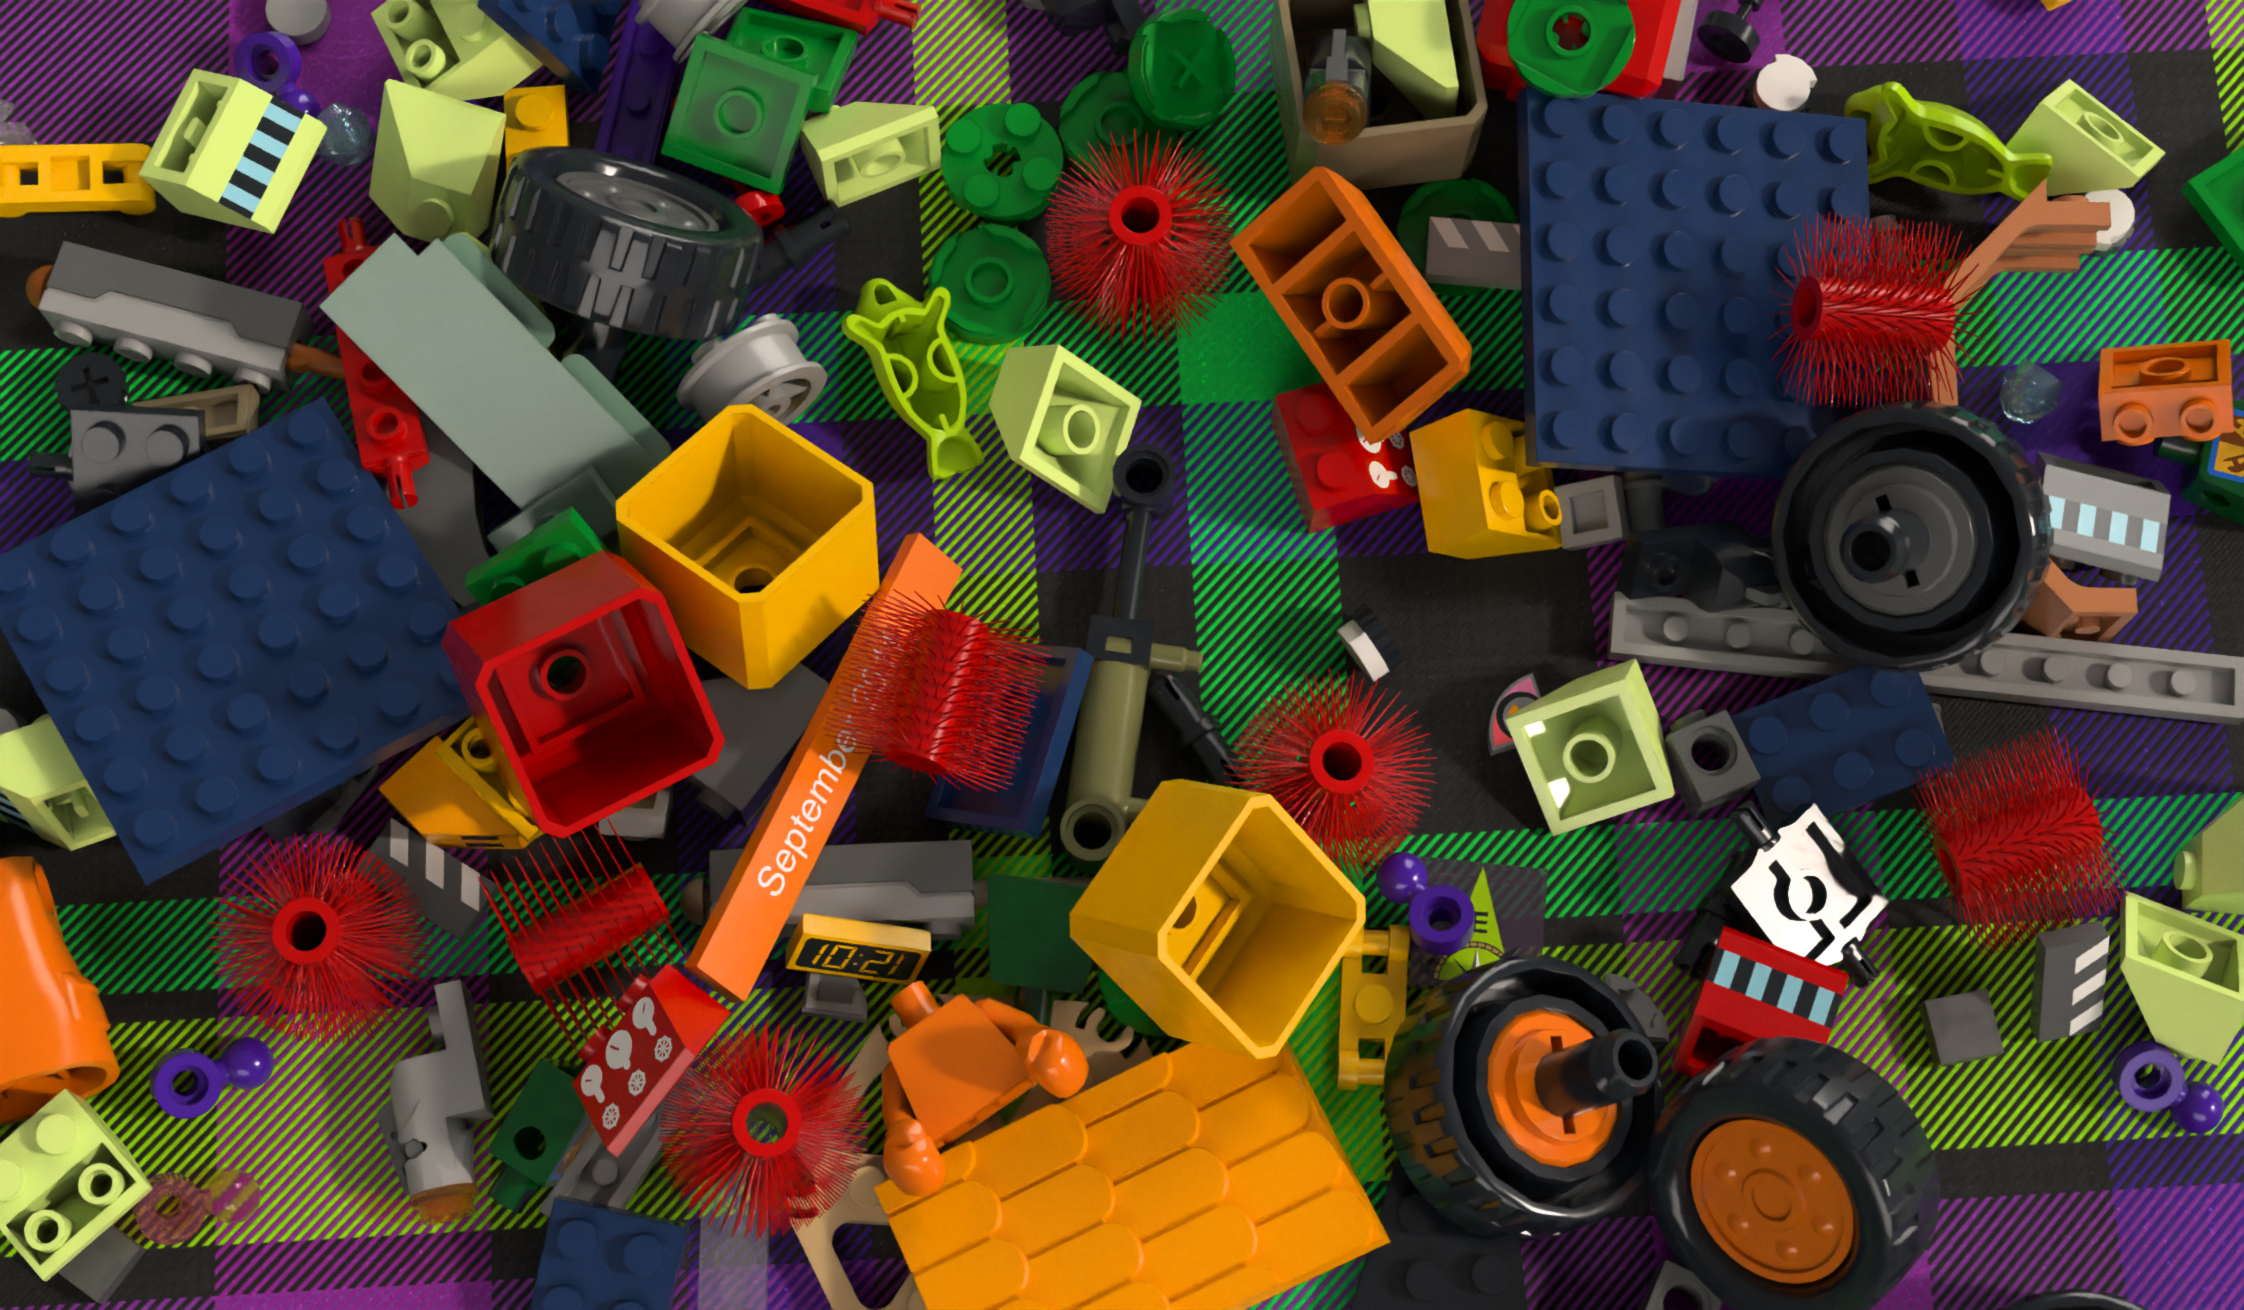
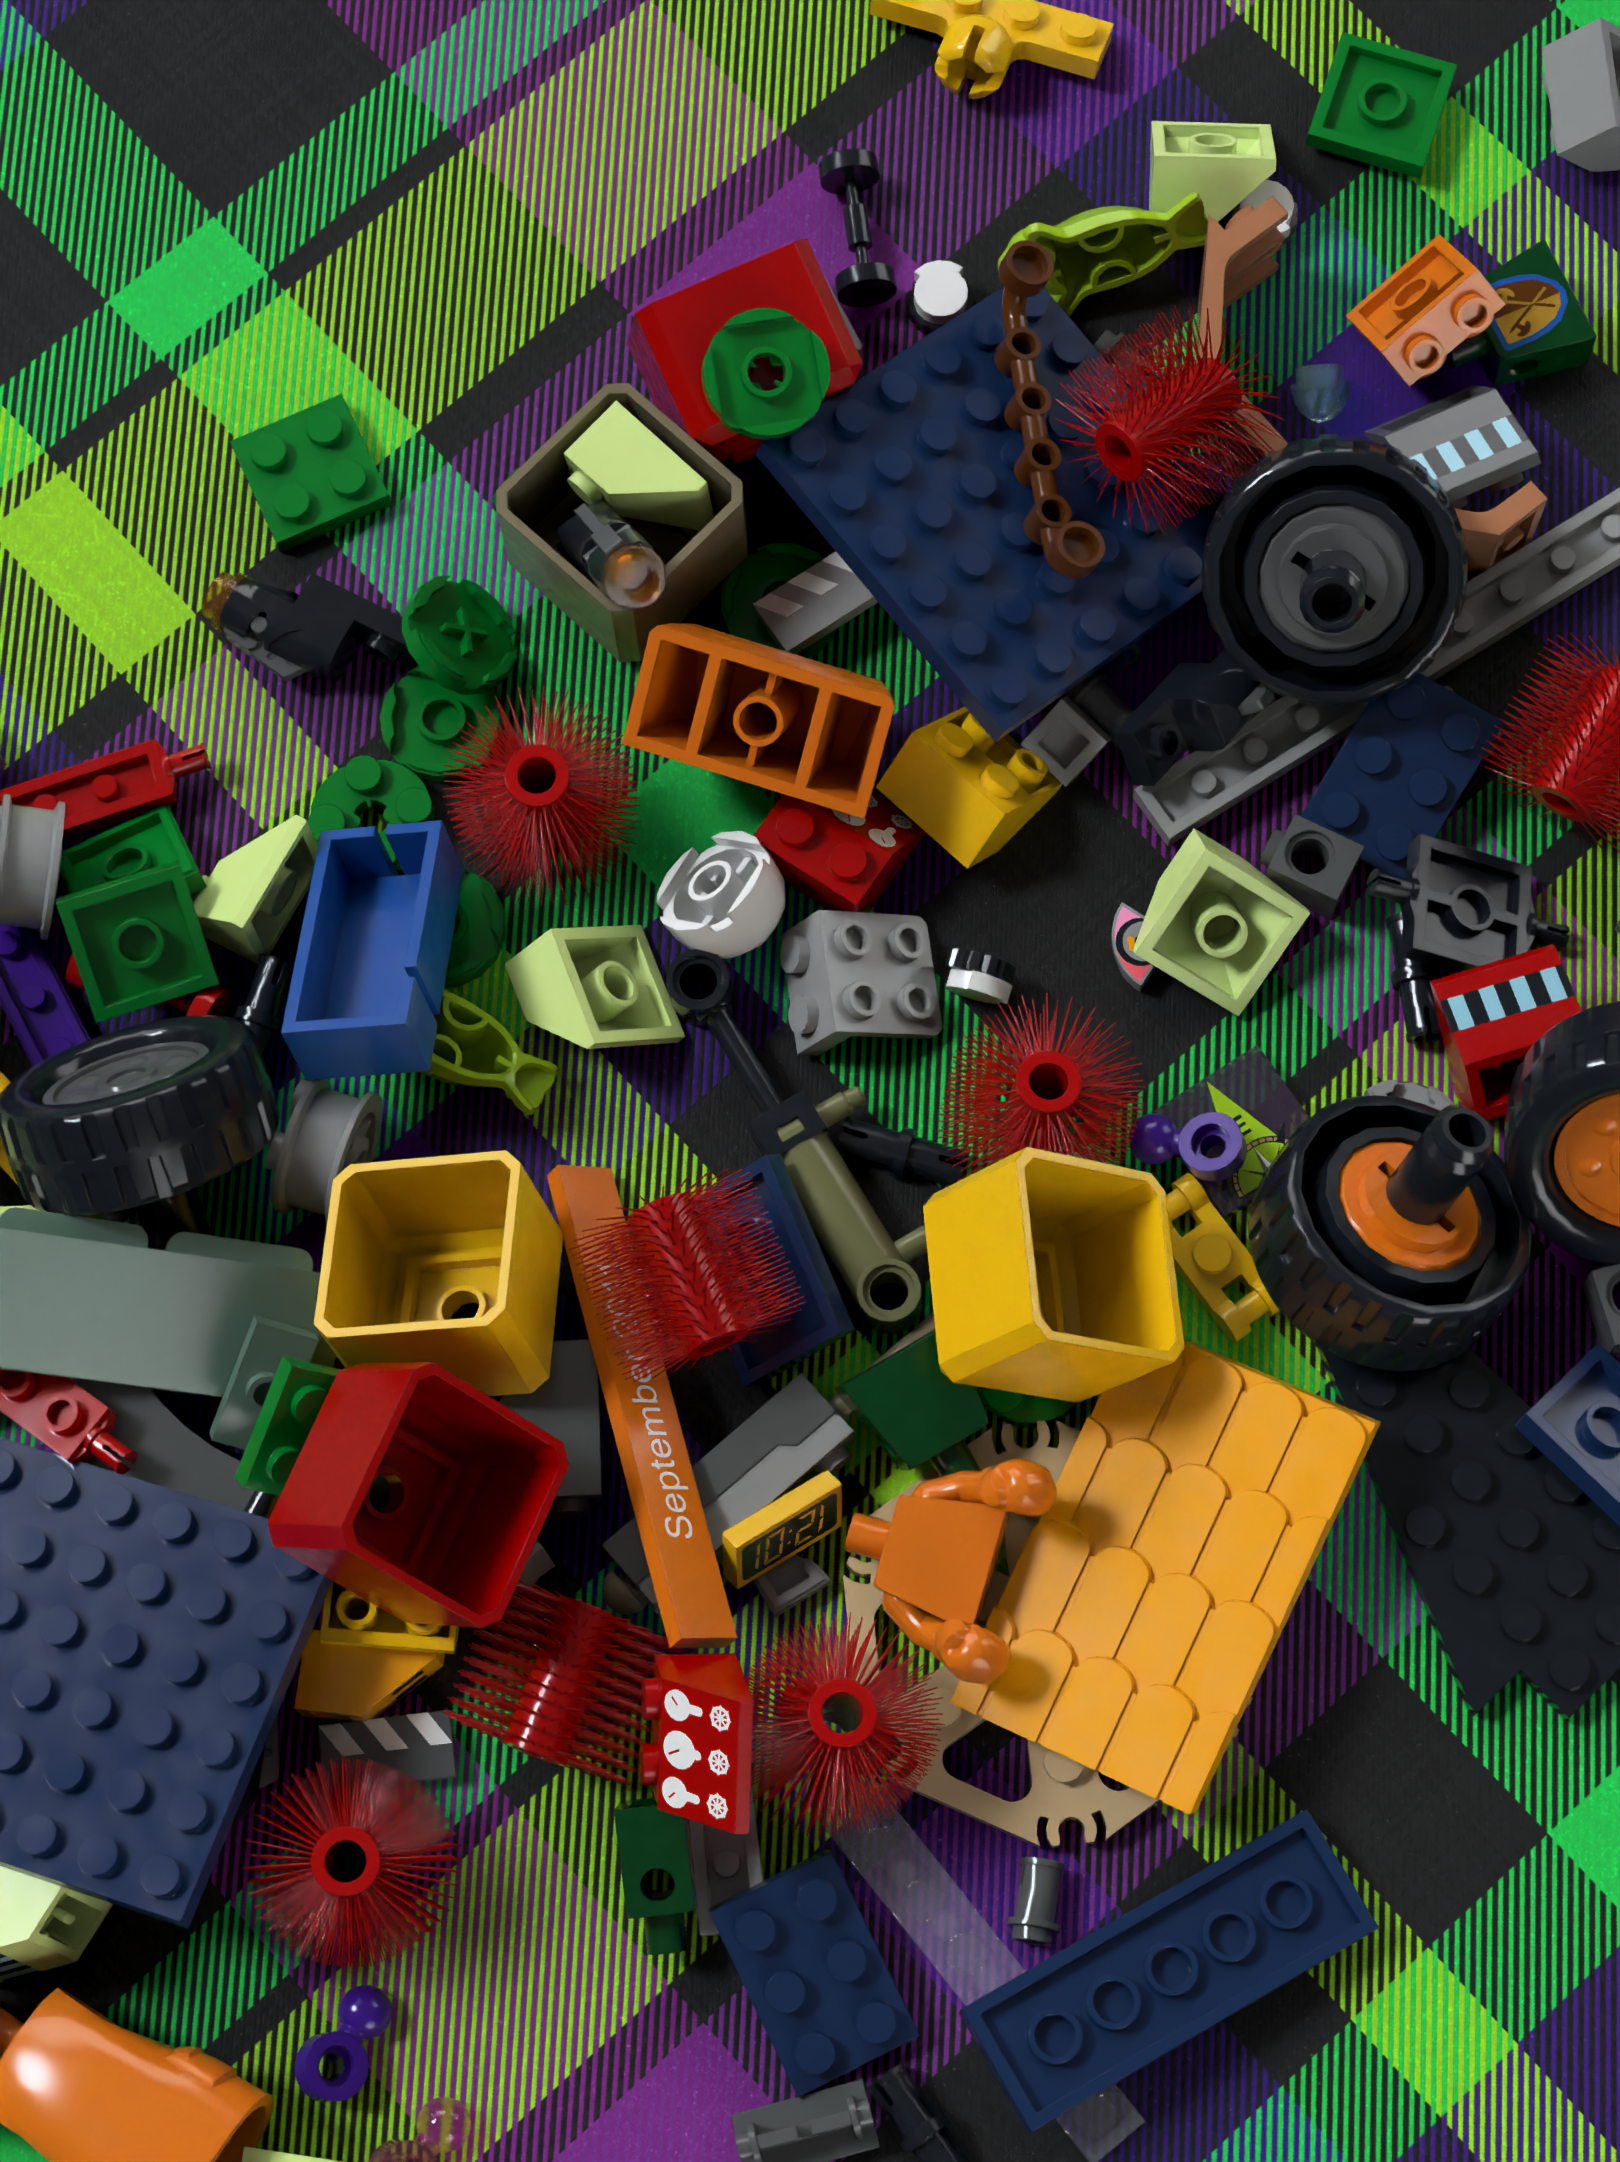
camera: 30 degrees left, 0 degrees up
(430, 1107) = (547, 1926): light grey plate -> none
(906, 256) = (373, 952): none -> blue piece
(1218, 426) = (723, 897): none -> white cylinder
(1275, 573) = (859, 979): none -> light grey bracket
(1709, 353) = (1068, 546): none -> reddish brown bar

